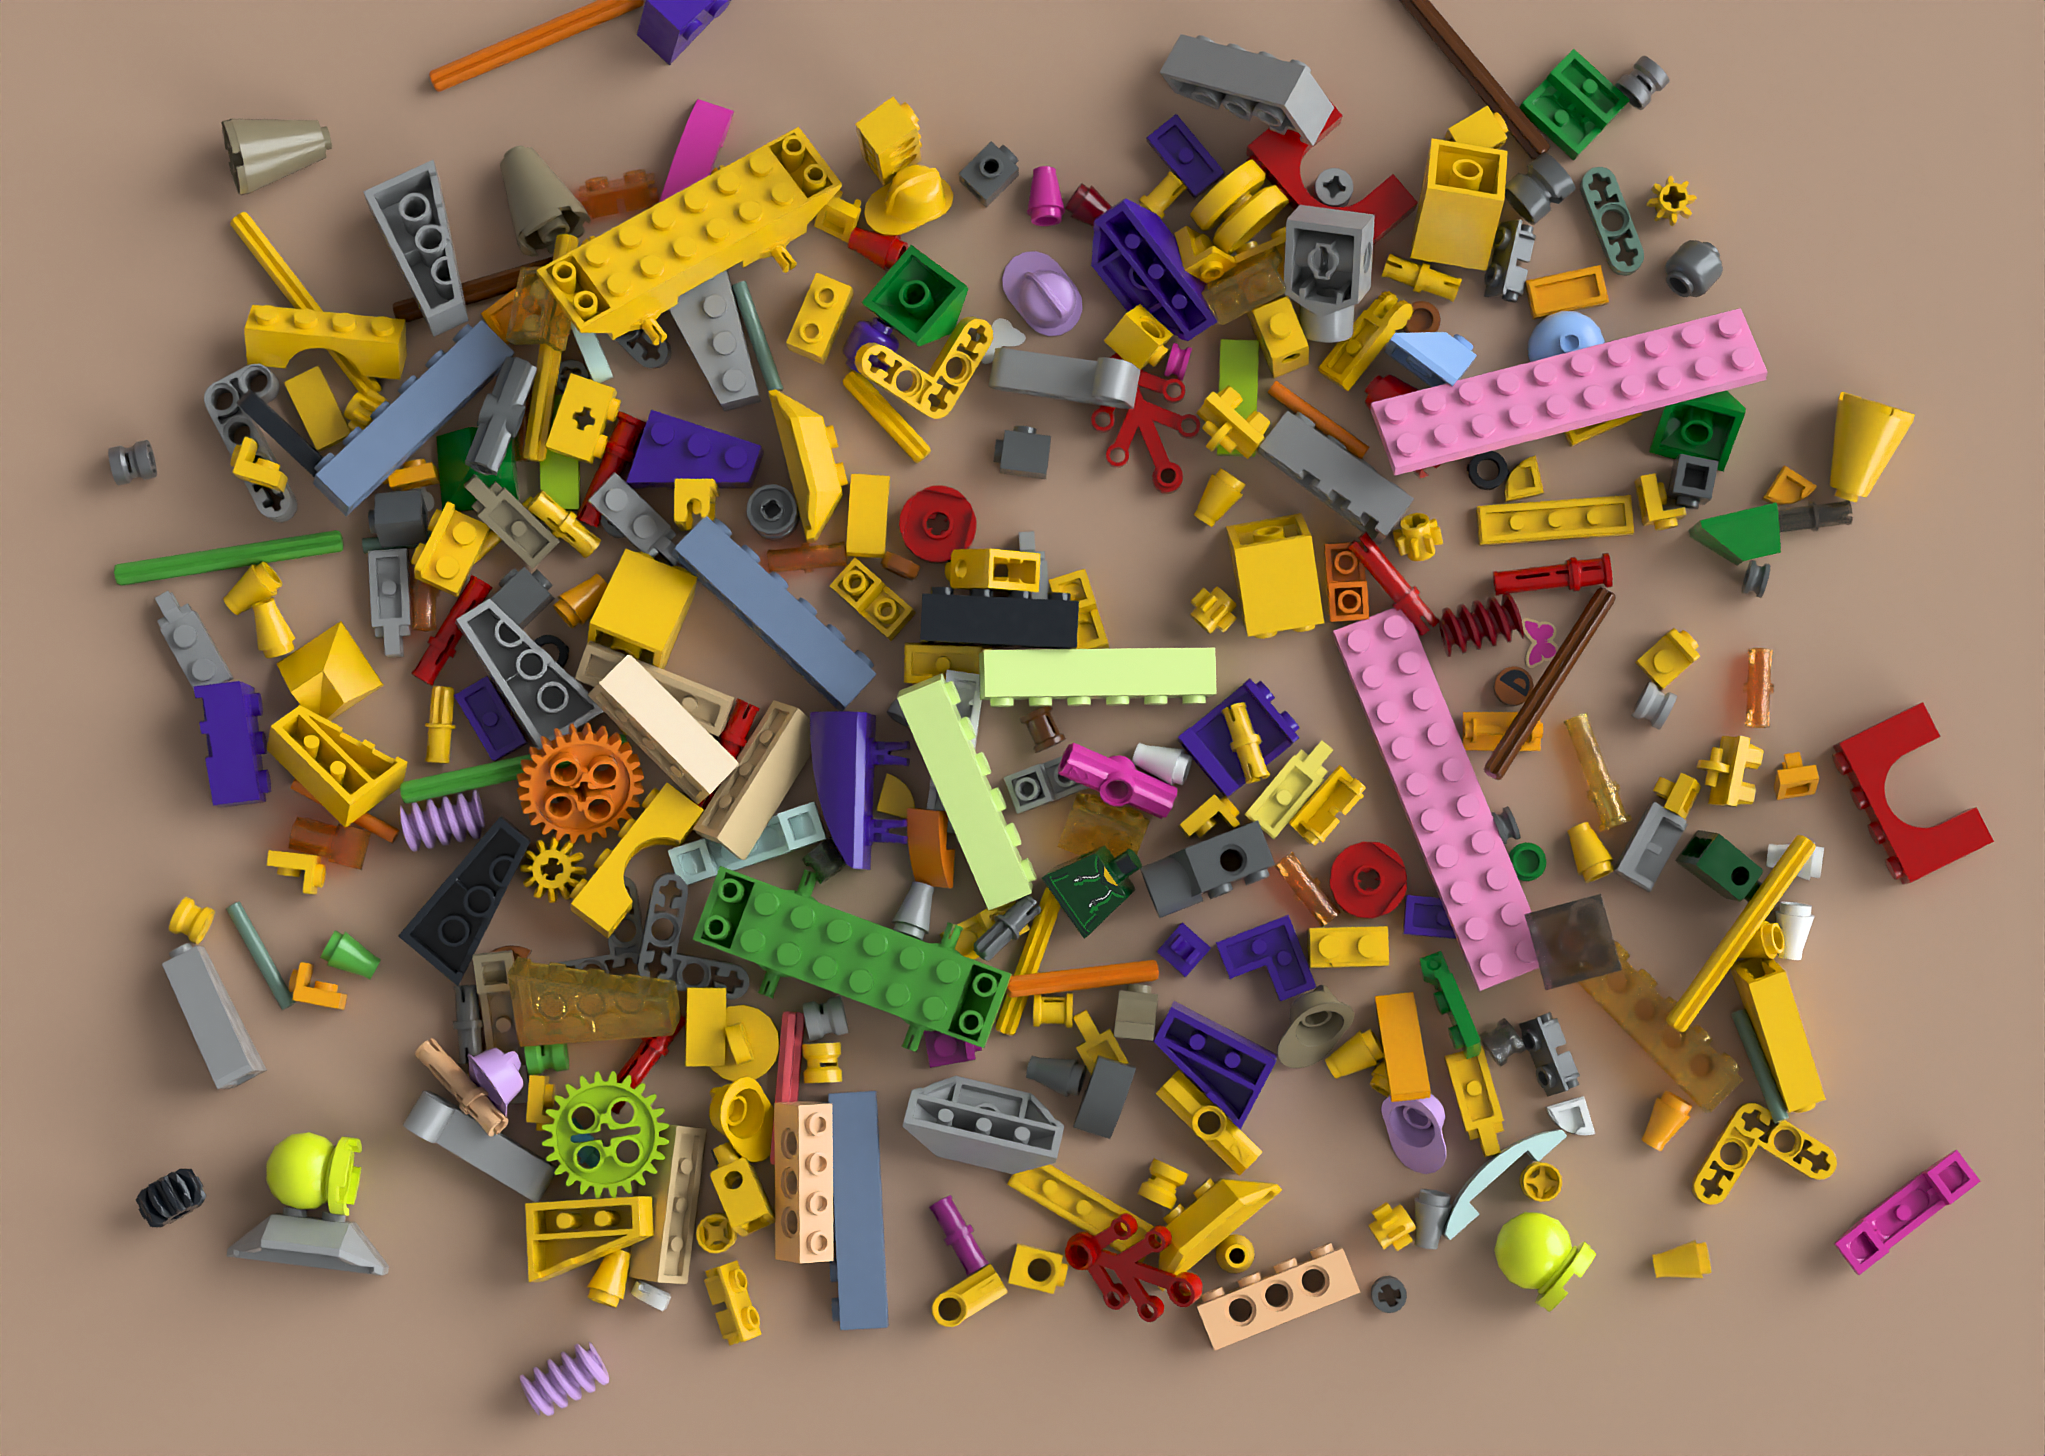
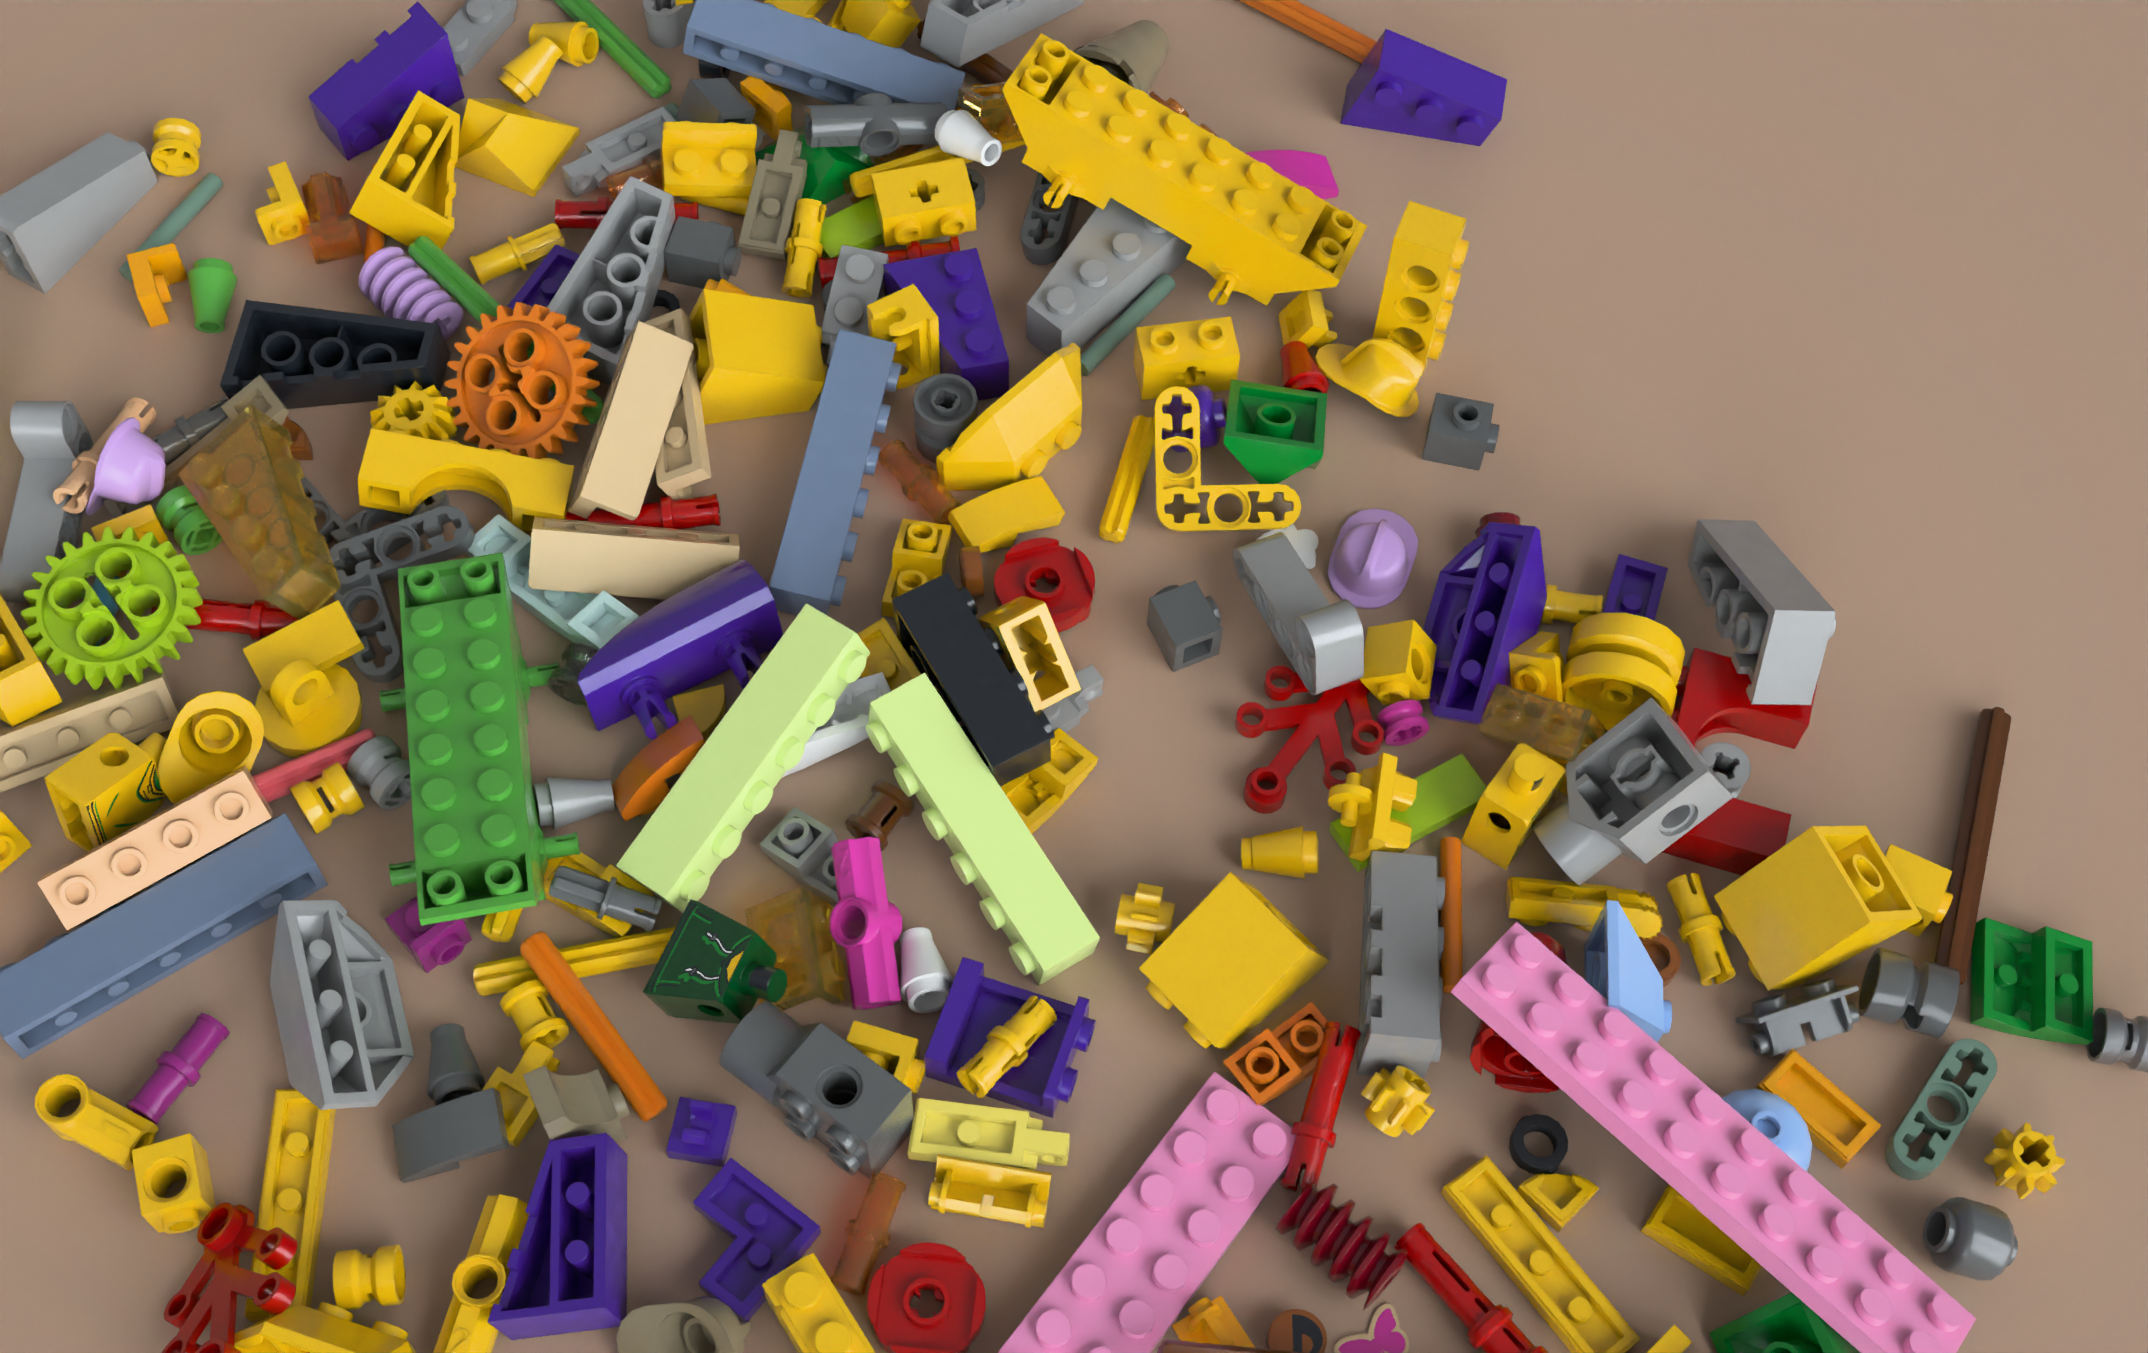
camera: 50 degrees right, 25 degrees down
(557, 362) = (965, 137): none -> white cone
(593, 355) = (1004, 187): light aqua beam -> none
(712, 1237) = (35, 797): yellow wheel -> none
(1045, 198) = (1475, 497): dark pink cone -> none

